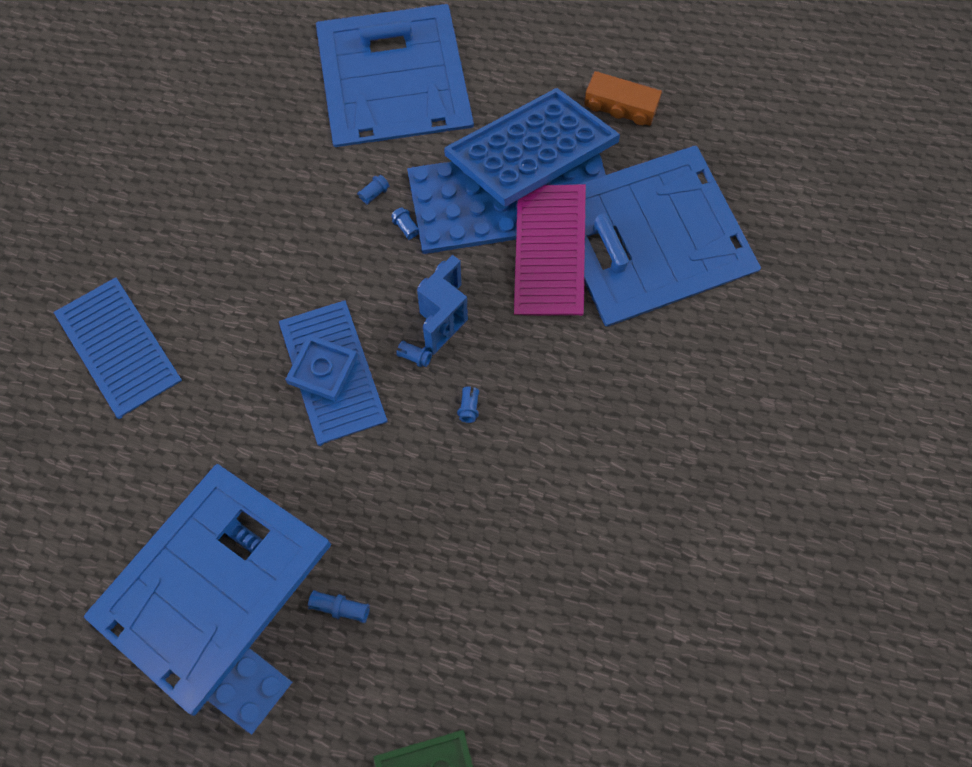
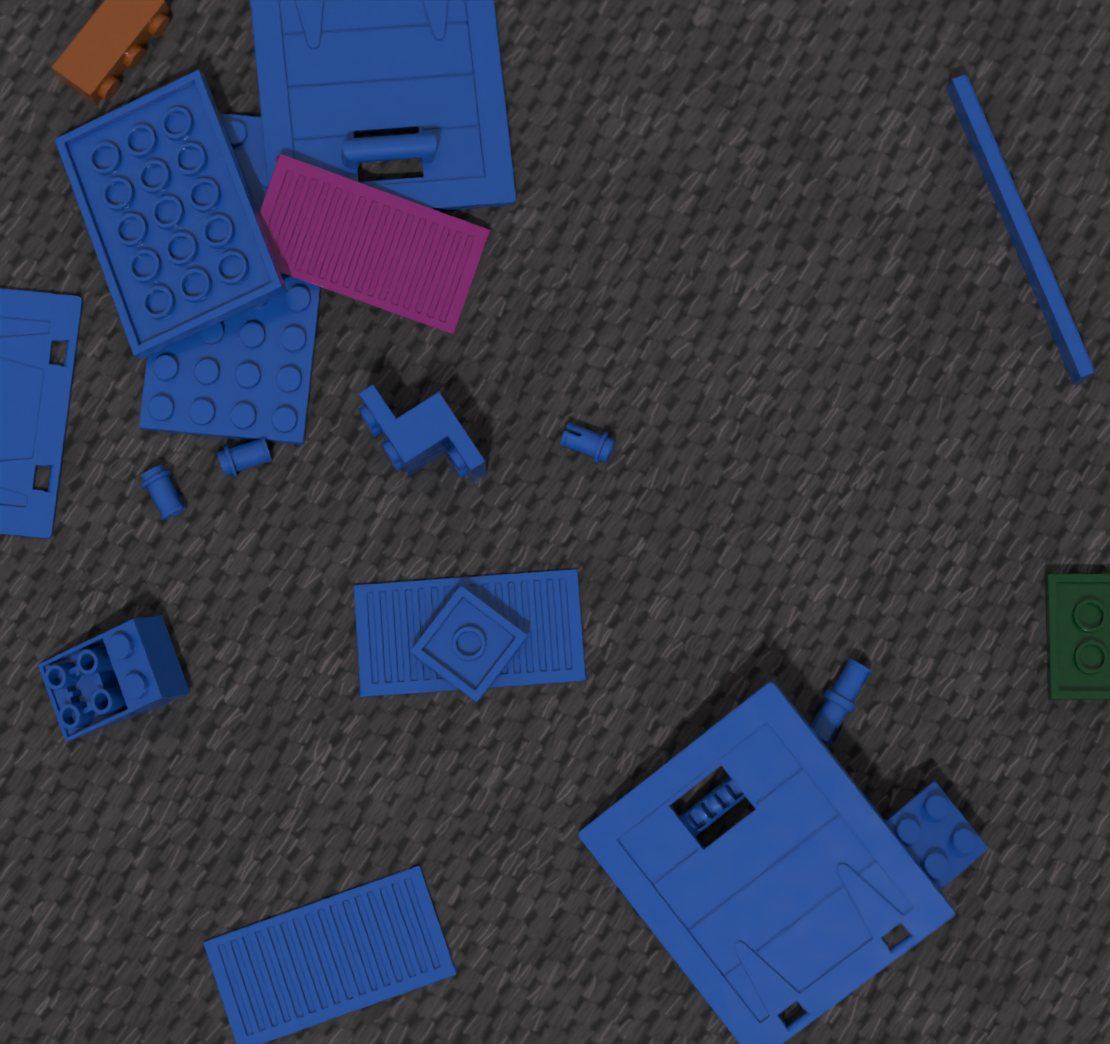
camera: 75 degrees left, 15 degrees up
(261, 193) = (114, 677): none -> blue slope
(421, 356) = (481, 500): blue pin -> none
(701, 645) = (1020, 229): none -> blue tile

